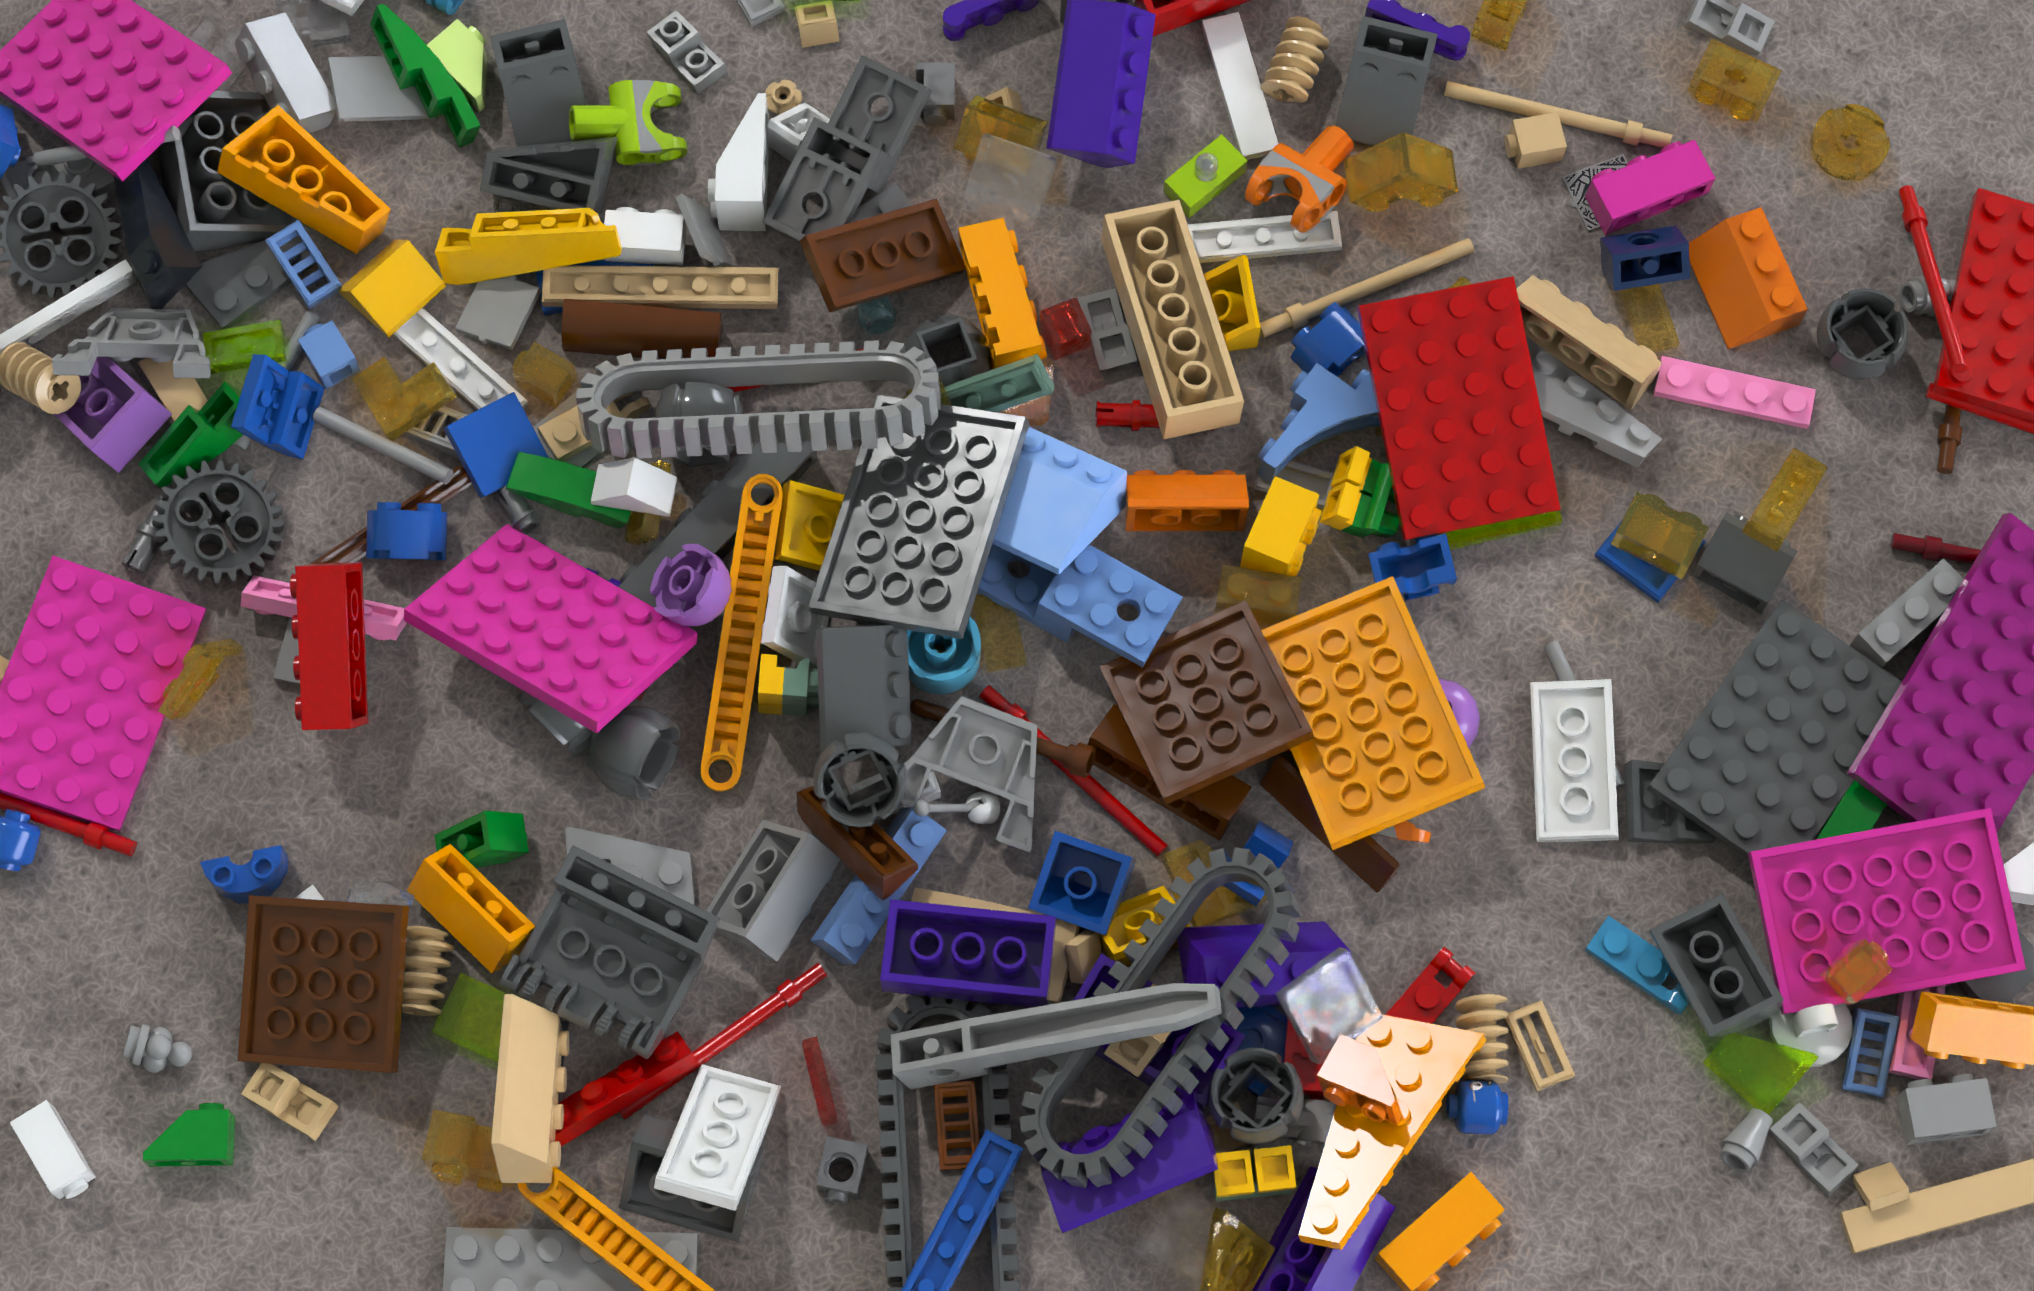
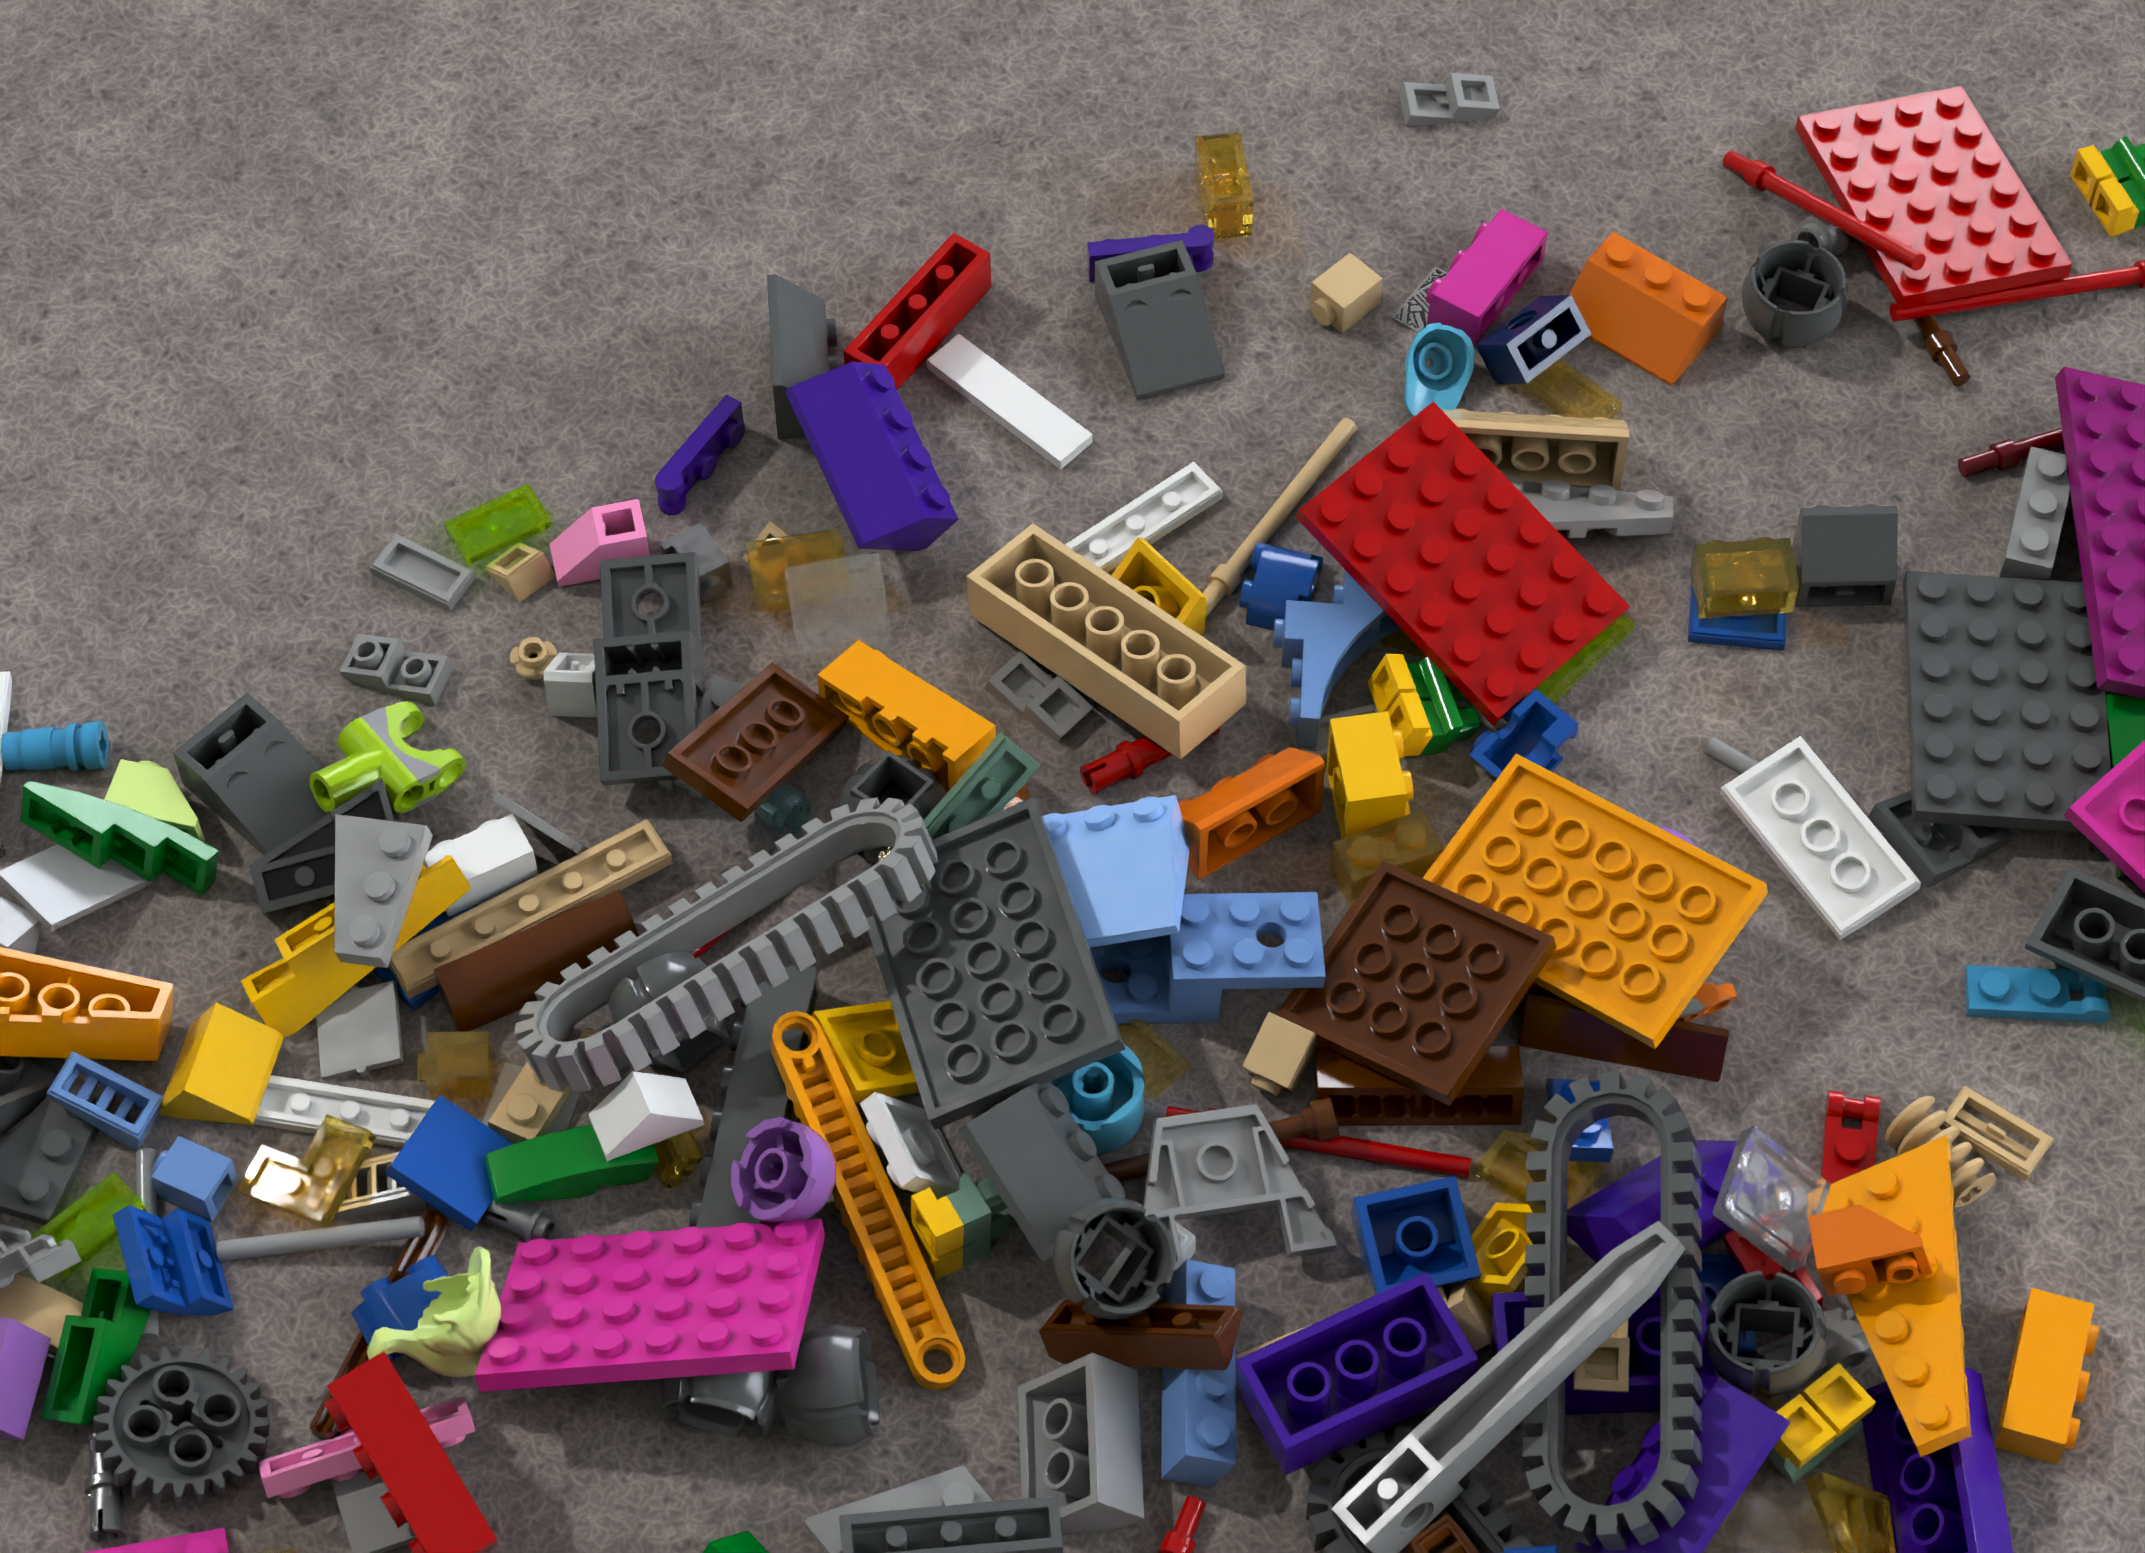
camera: 30 degrees left, 15 degrees down
(416, 563) = (453, 1325): none -> yellowish green piece
(553, 218) = (374, 885): none -> light grey wing
(741, 177) = (555, 750): white slope -> none
(880, 37) = (598, 535): none -> bright pink slope
(977, 812) = (1240, 1236): hinge -> none
(1065, 328) = (1003, 705): clear red brick -> none
(1083, 696) = (1280, 1055): none -> tan brick
(1205, 175) = (1036, 493): lime piece -> none
(1295, 61) = (1052, 344): tan piece -> none
(1304, 177) = (1139, 444): orange connector -> none
(1399, 170) = (1232, 384): clear yellow brick -> none
(1477, 1107) = (1988, 1223): blue head -> none
(1545, 254) = (1447, 351): none -> medium azure cap
(1631, 133) = (1429, 242): tan bar -> none
(1725, 64) = (1495, 144): clear yellow brick -> none
(1734, 392) = (1711, 418): bright pink plate -> none
(1785, 499) = (1841, 474): clear yellow tile -> none
(1844, 162) = (1640, 163): clear yellow plate -> none

